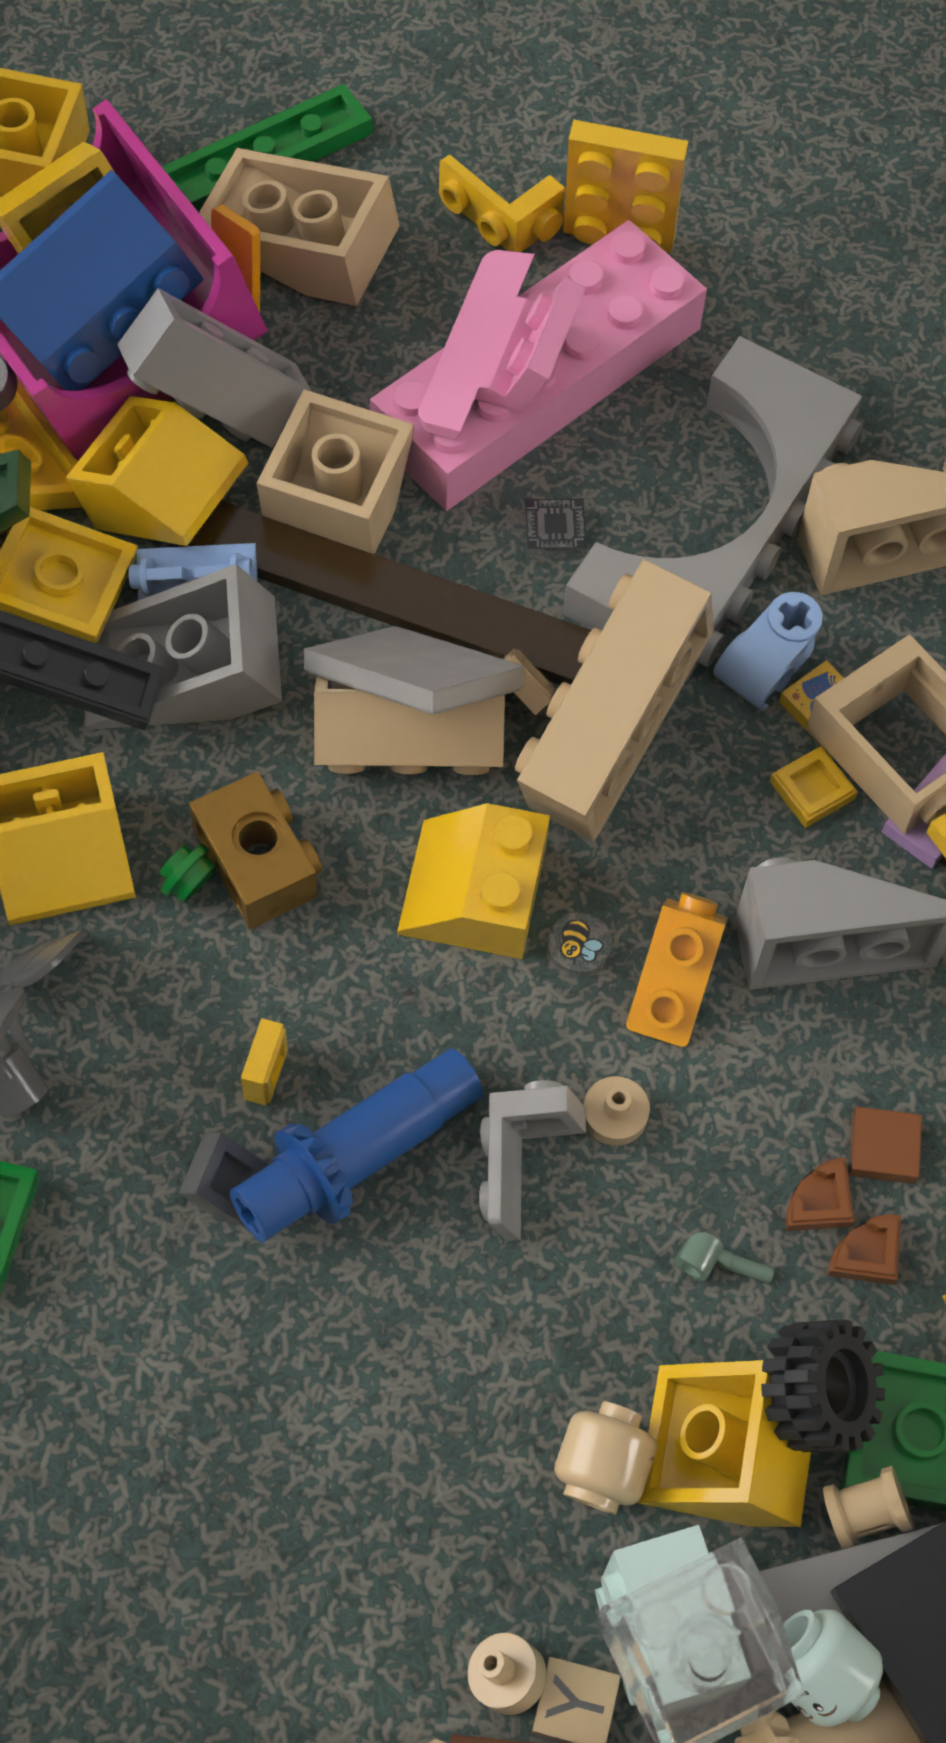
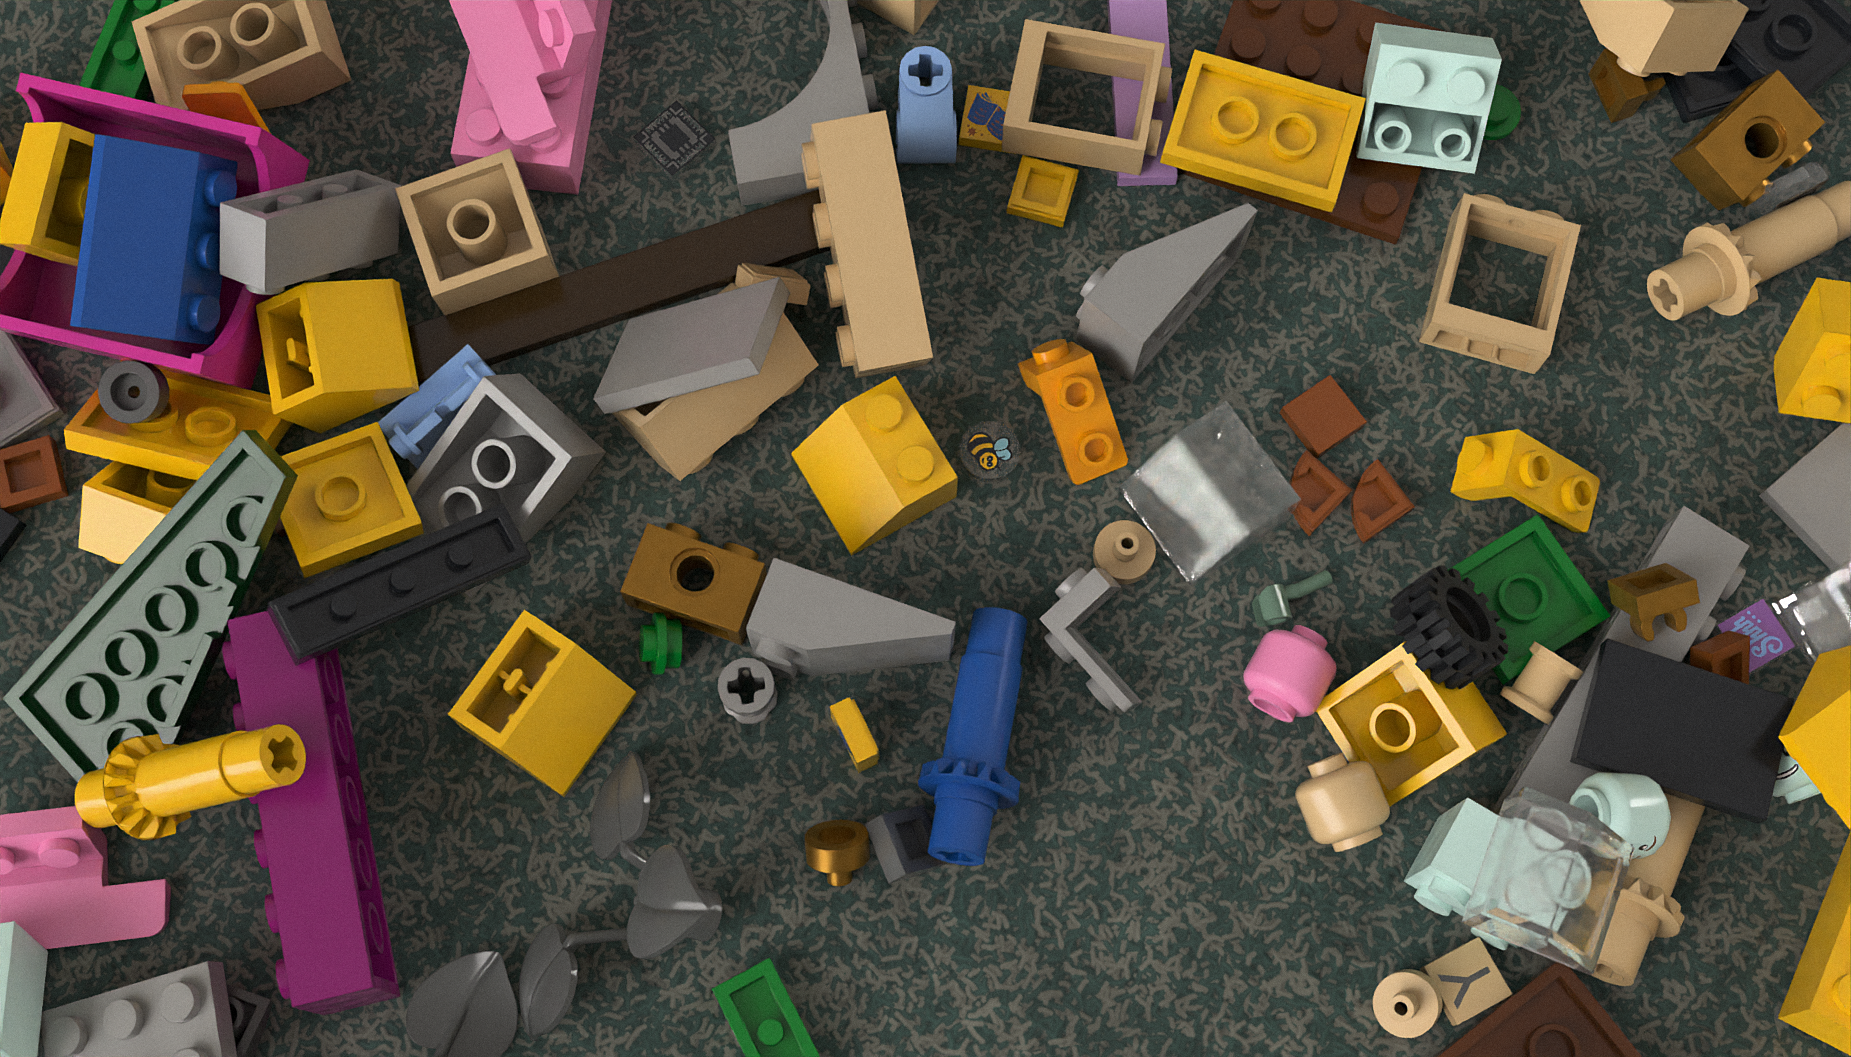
camera: 40 degrees left, 10 degrees up
(167, 1137) = (837, 849): none -> pearl gold tile
(210, 943) = (731, 682): none -> light grey bush
(321, 965) = (834, 627): none -> light grey slope
(661, 1318) = (1289, 673): none -> bright pink head
(725, 1119) = (1209, 493): none -> clear slope

